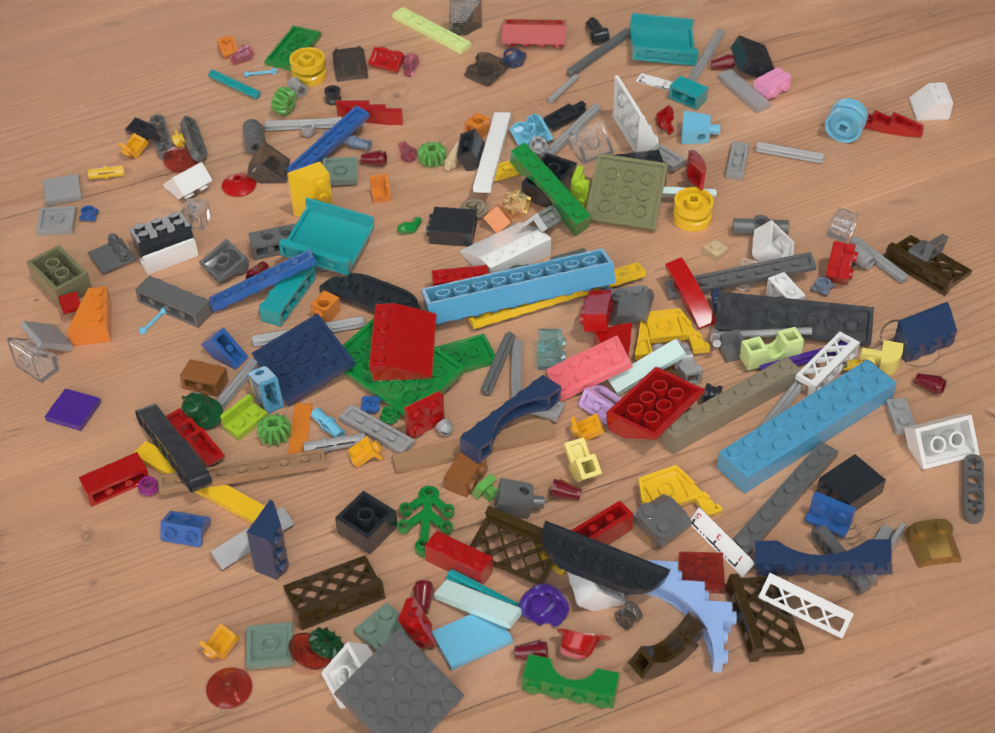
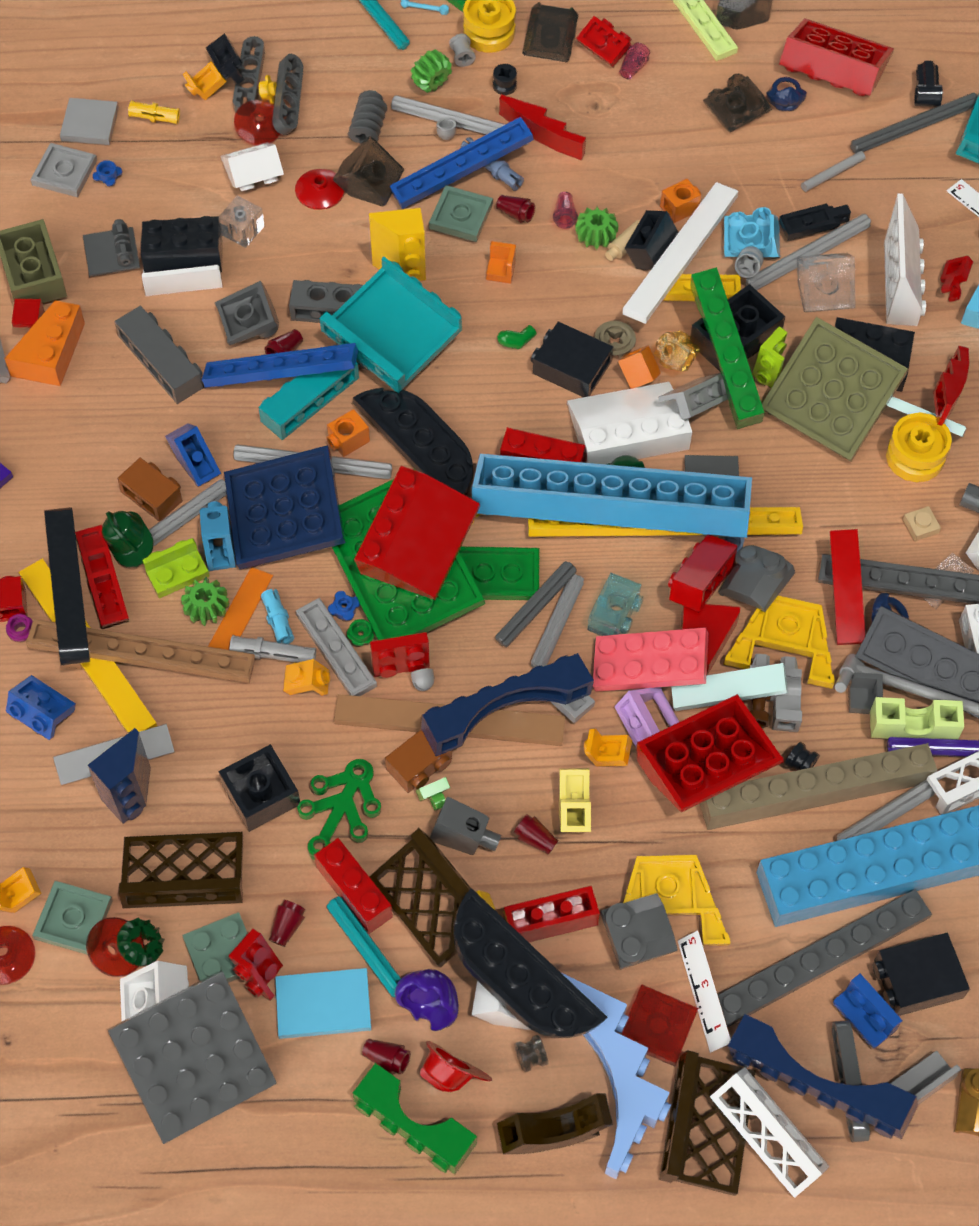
camera: 20 degrees right, 15 degrees up
(143, 330) = (107, 383): medium azure hinge -> none
(478, 604) = (348, 961): light aqua tile -> none
(674, 160) = (926, 343): light grey plate -> none

